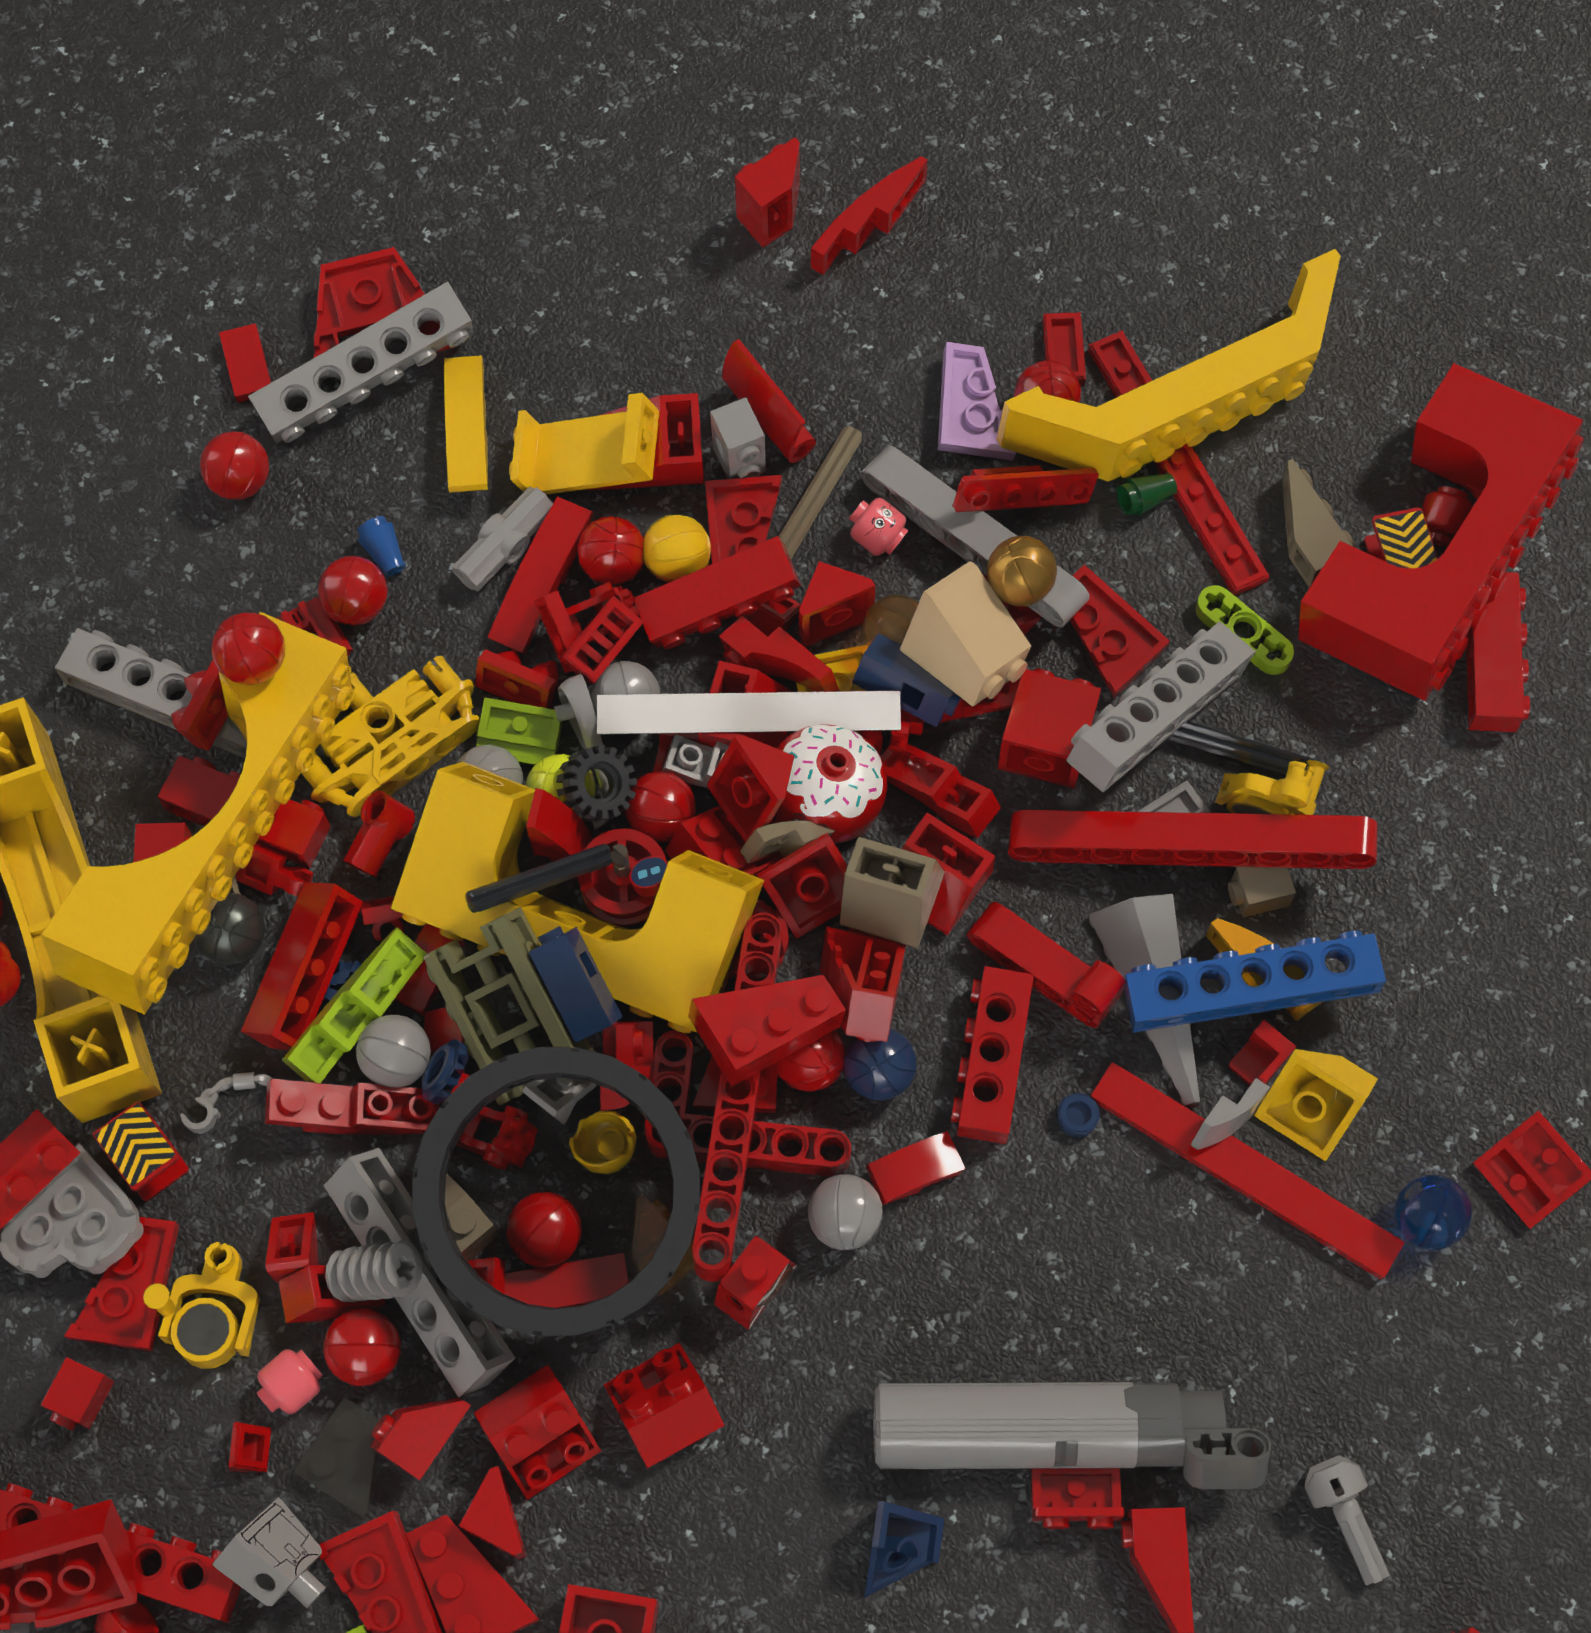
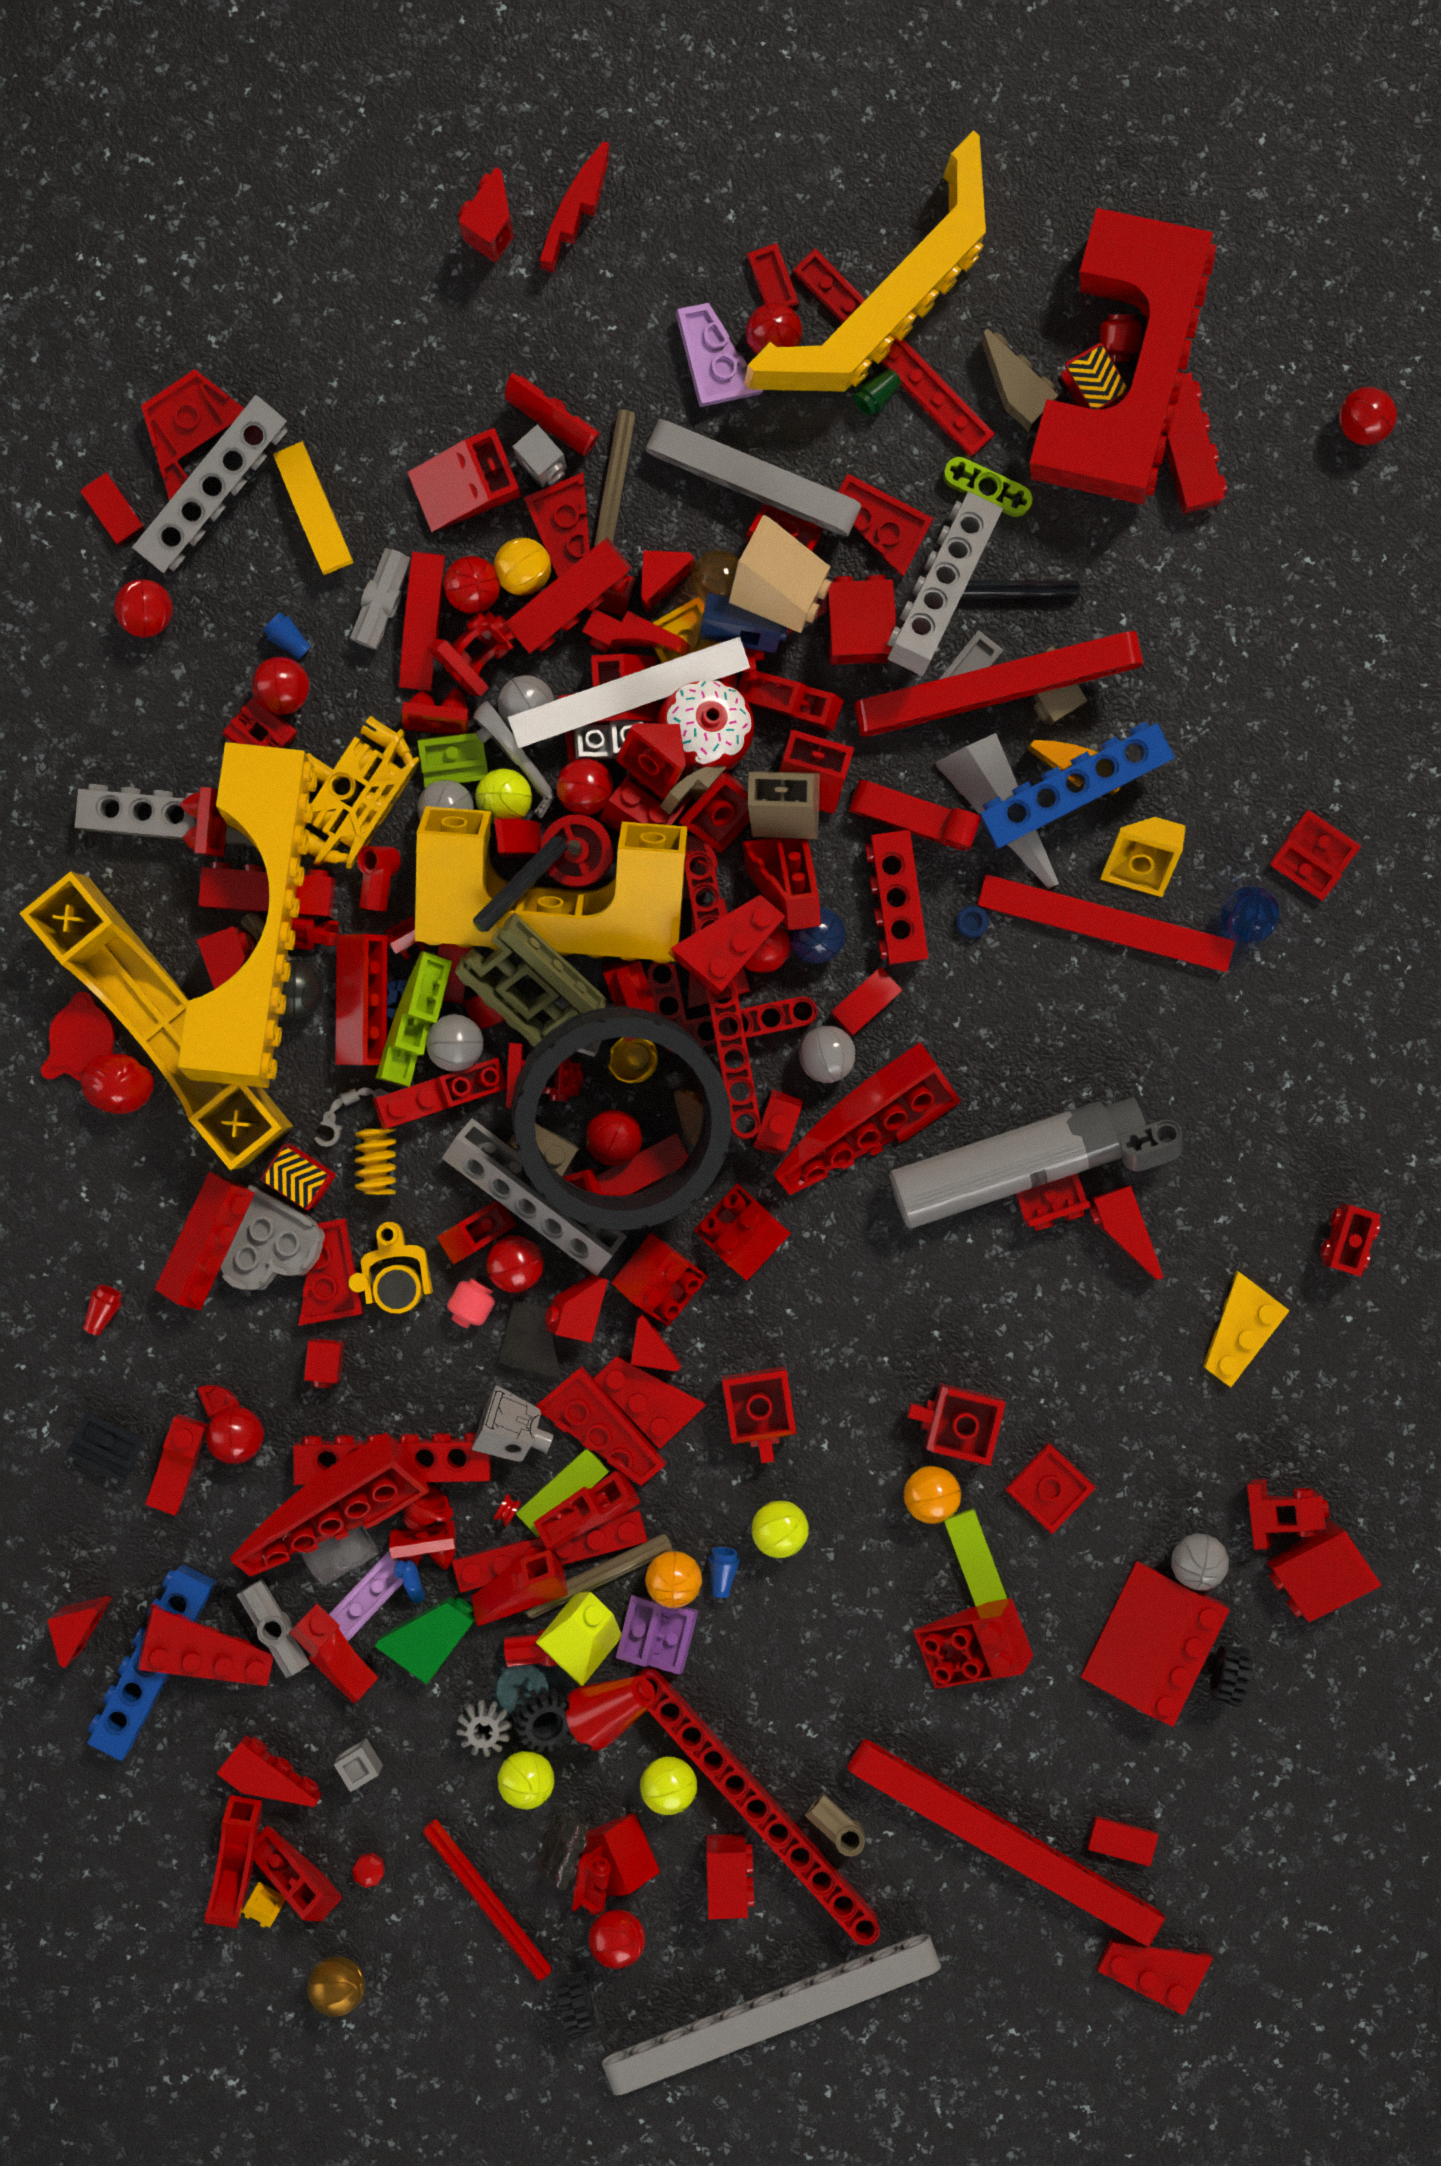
camera: 15 degrees left, 20 degrees up
(241, 1163) = (375, 1161): none -> yellow piece
(248, 648) = (234, 784): red piece -> none
(249, 1448) = (460, 1356): red slope -> none
(291, 1245) = (435, 1206): red slope -> none
(374, 1271) = (506, 1213): light grey piece -> none
(444, 1071) = (499, 1047): dark blue gear -> none
(574, 983) = (576, 957): dark blue brick -> none
(586, 450) = (419, 503): yellow panel -> none
(602, 662) = (479, 676): red slope -> none
(617, 777) = (550, 790): black tyre -> none
(647, 875) = (600, 850): tile -> none
(878, 526) = (674, 492): coral head -> none
(884, 1310) = (880, 1110): none -> red wedge
(901, 1544) = (939, 1271): dark blue slope -> none
(1022, 570) = (805, 509): pearl gold piece -> none
(1023, 488) = (778, 422): red bracket -> none
(1229, 1116) = (1083, 891): light grey slope -> none
(1262, 1055) = (1095, 834): red panel -> none
(1263, 795) = (1050, 631): yellow piece -> none
(1347, 1511) = (1235, 1139): light grey piece -> none

